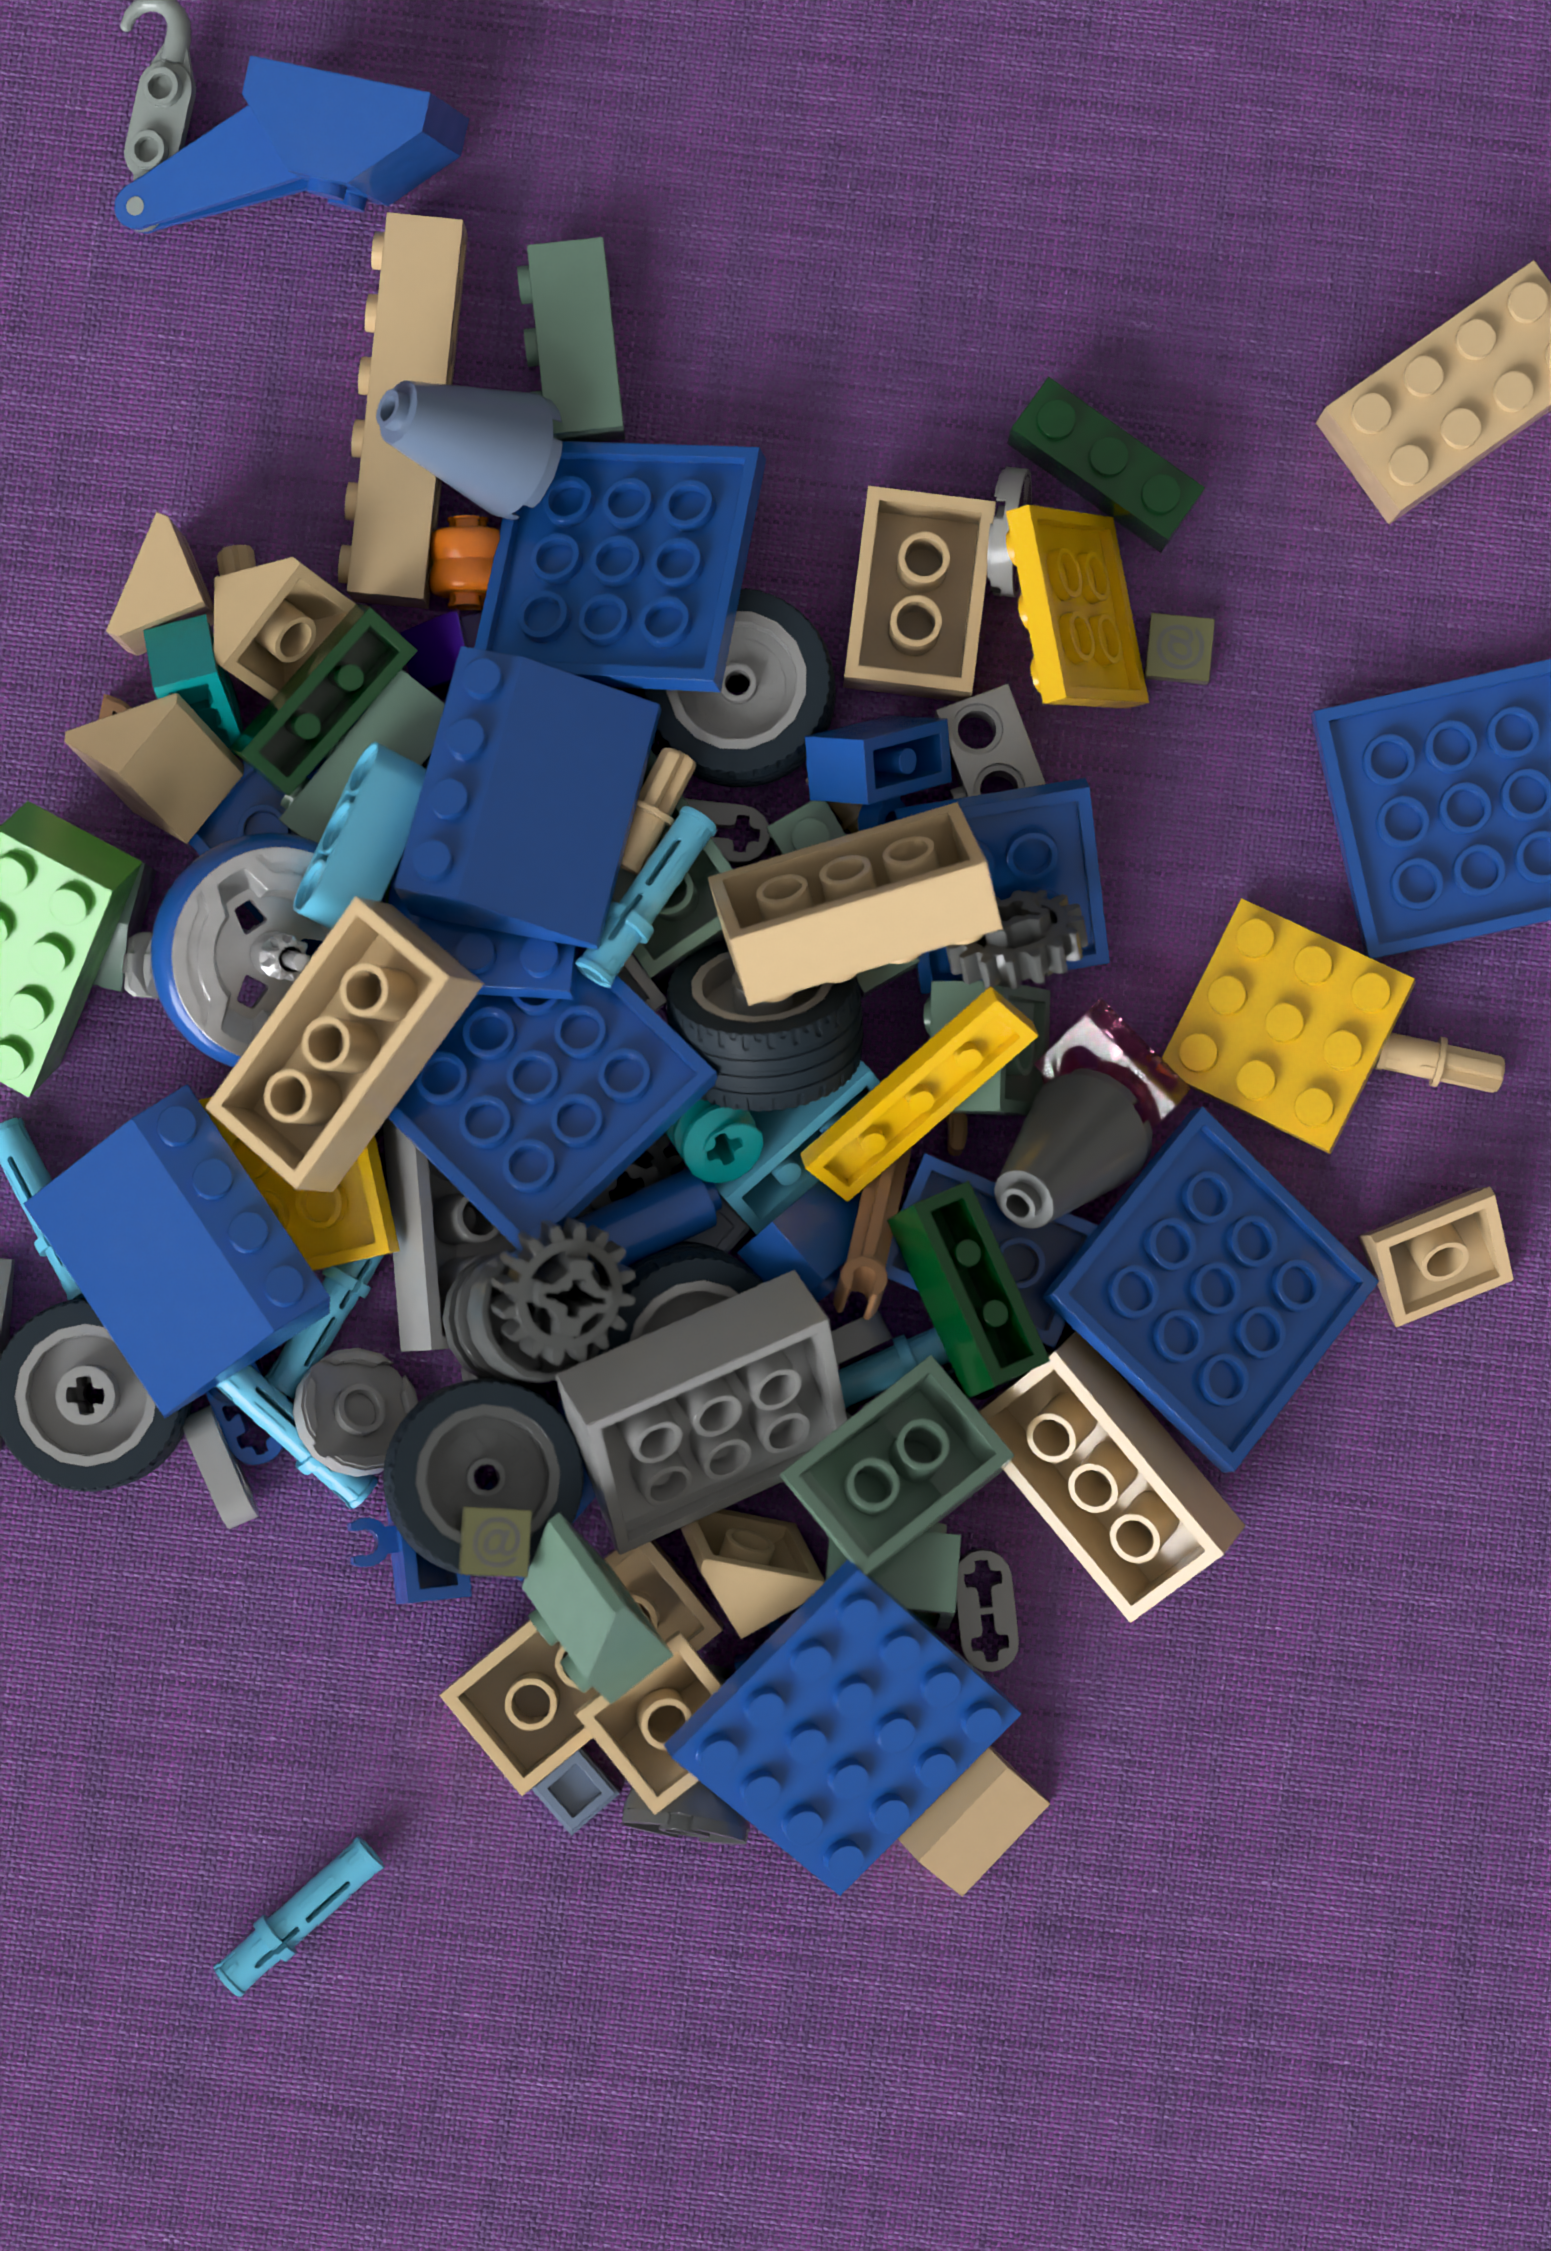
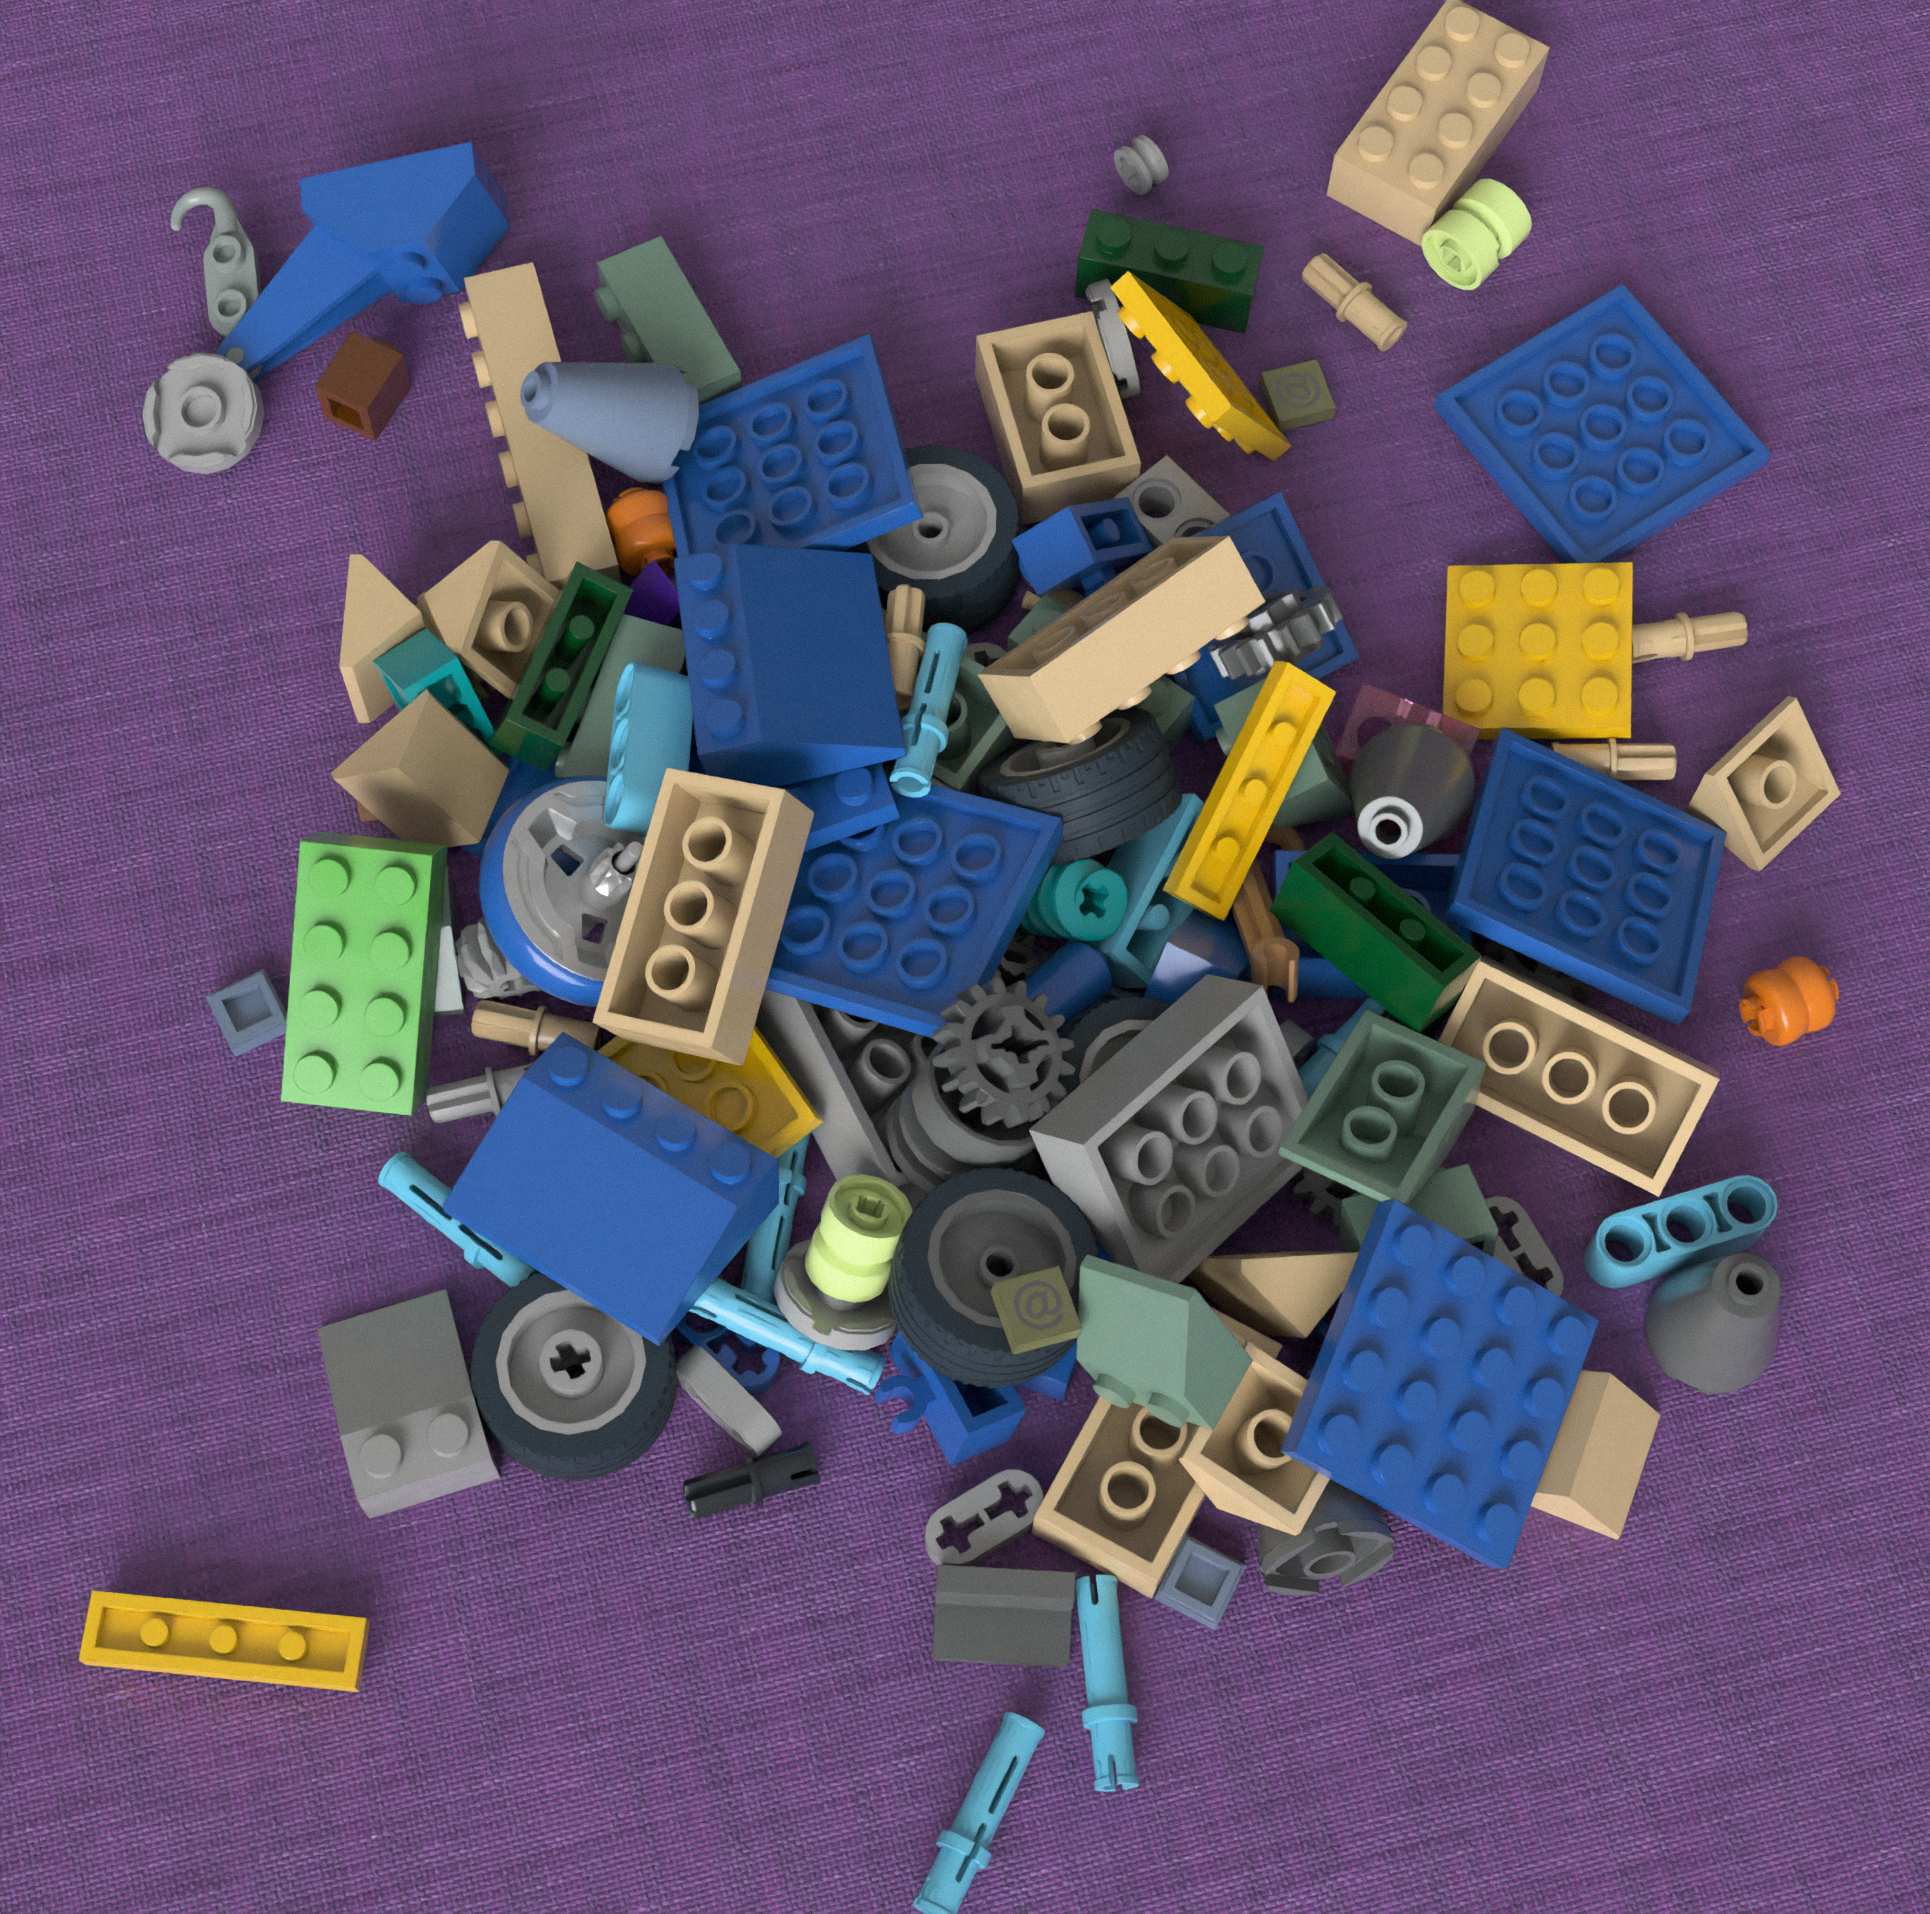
camera: 25 degrees left, 20 degrees down
(84, 258) = (203, 413): none -> light grey tile
(112, 1088) = (473, 1095): none -> light grey axle
(154, 1027) = (530, 1027): none -> tan axle
(216, 1547) = (751, 1481): none -> black axle
(253, 286) = (363, 385): none -> reddish brown brick
(384, 1380) = (857, 1238): none -> yellowish green wheel
(389, 1753) = (1003, 1616): none -> dark grey panel
(410, 1676) = (975, 1506): none -> light grey beam
(453, 1848) = (1108, 1710): none -> medium azure pin
(1119, 1726) = (1716, 1322): none -> dark grey cone
(1133, 324) = (1141, 164): none -> light grey bush
(1171, 1667) = (1700, 1210): none -> medium azure beam
(1282, 564) = (1354, 301): none -> tan axle
(1307, 1167) = (1624, 760): none -> tan axle
(1352, 1473) = (1789, 1000): none -> orange piece
(1444, 540) = (1479, 230): none -> yellowish green wheel

